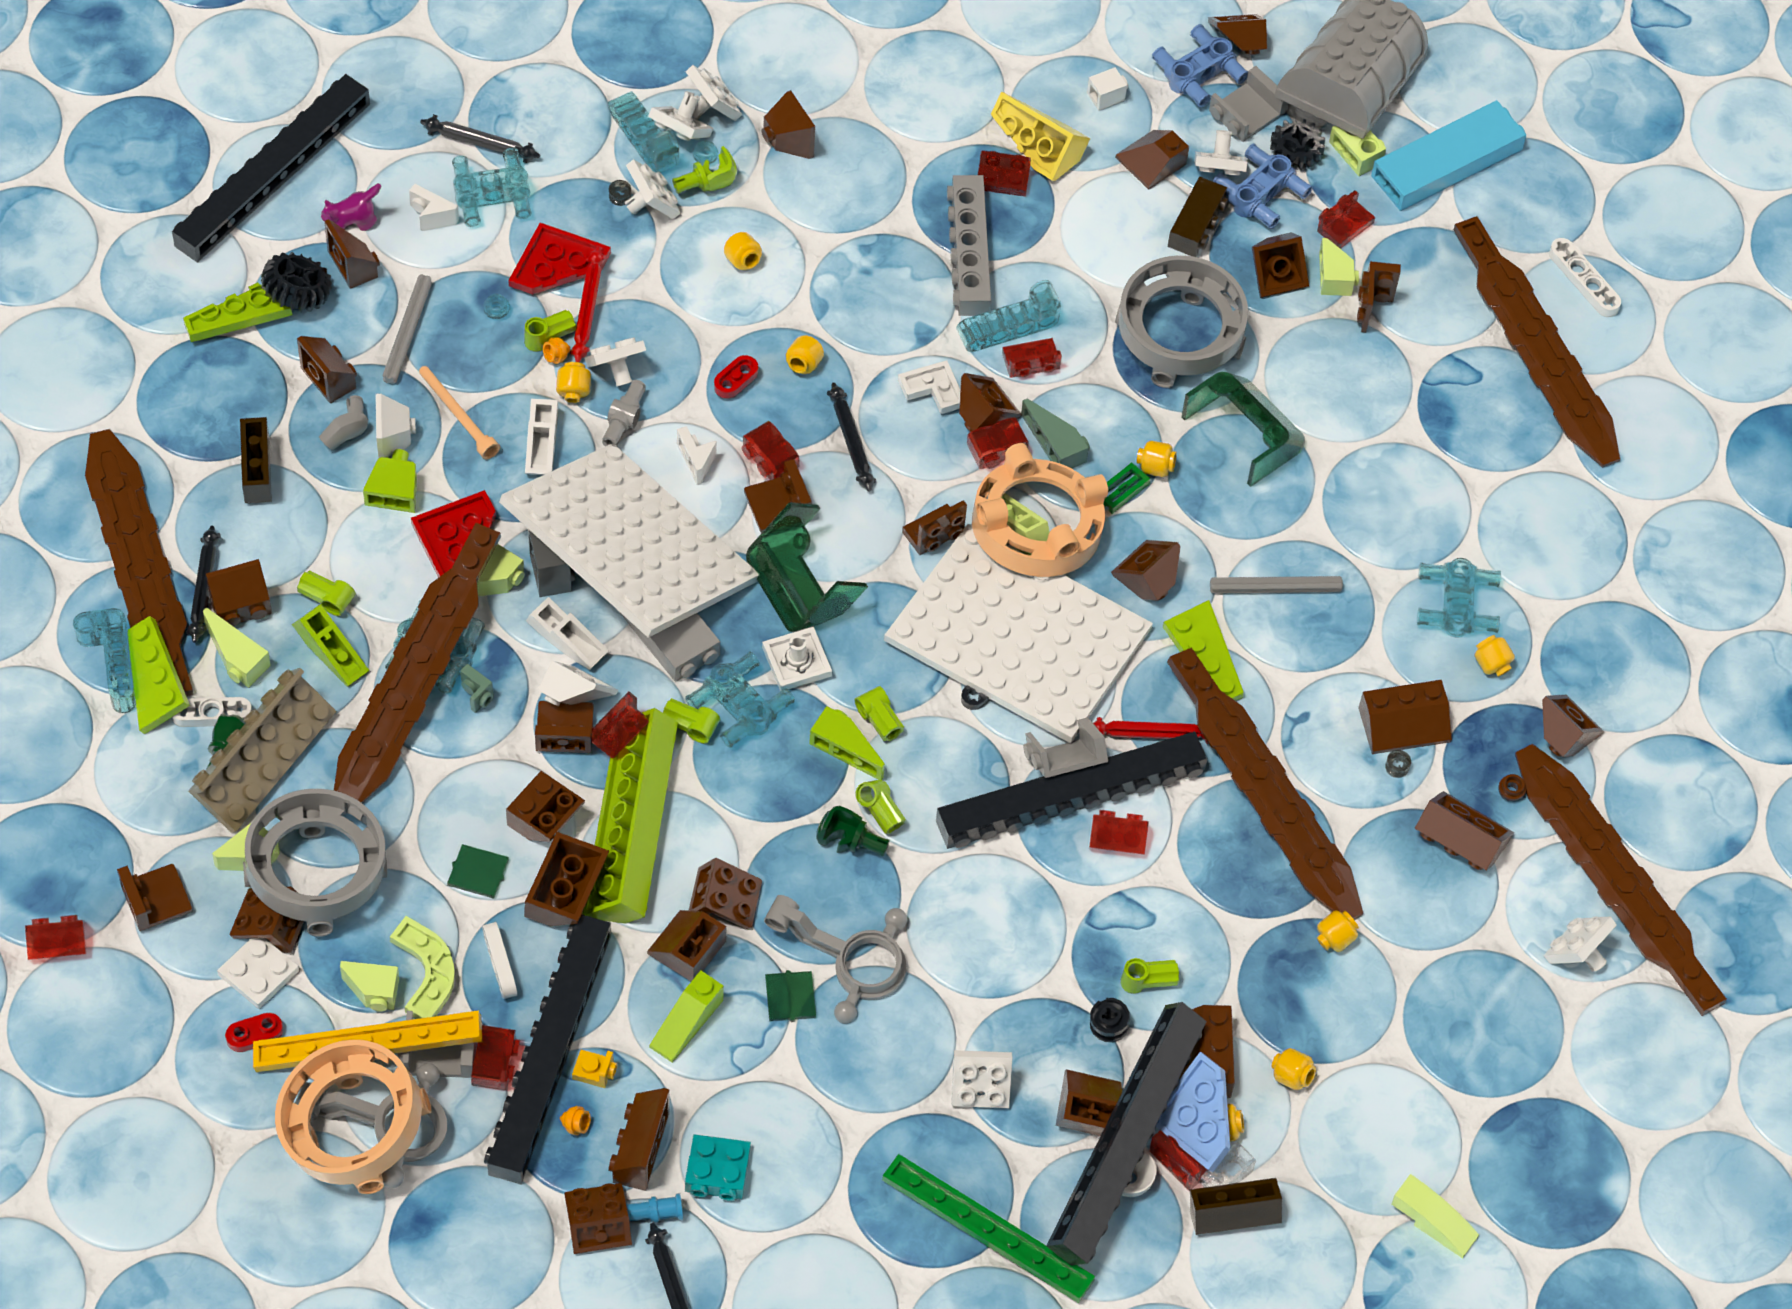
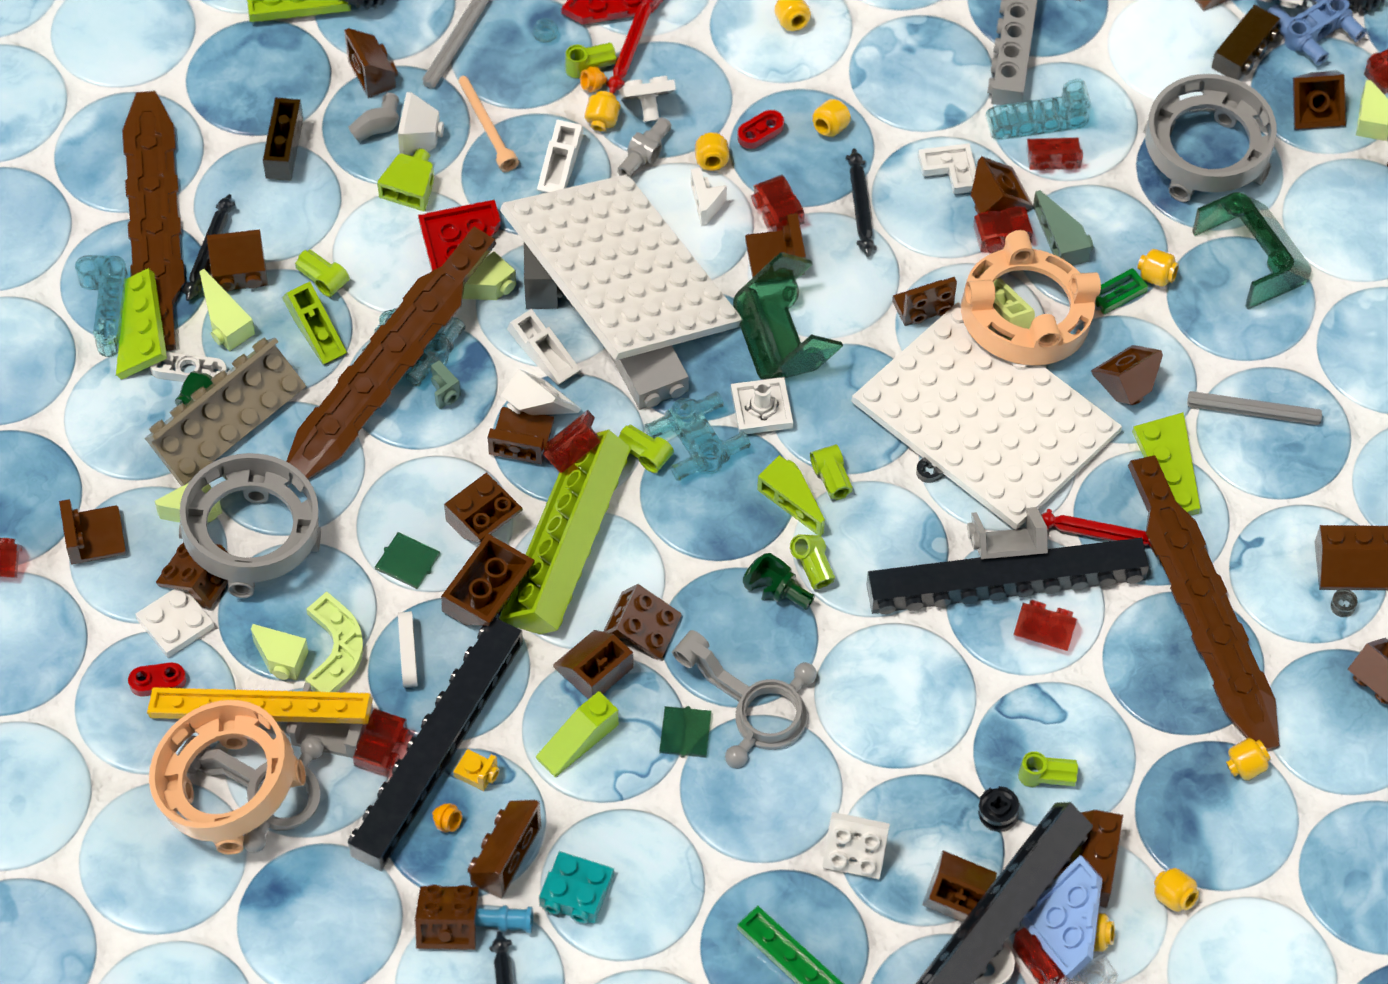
camera: 15 degrees right, 0 degrees up
(692, 407) = (711, 151): none -> yellow head

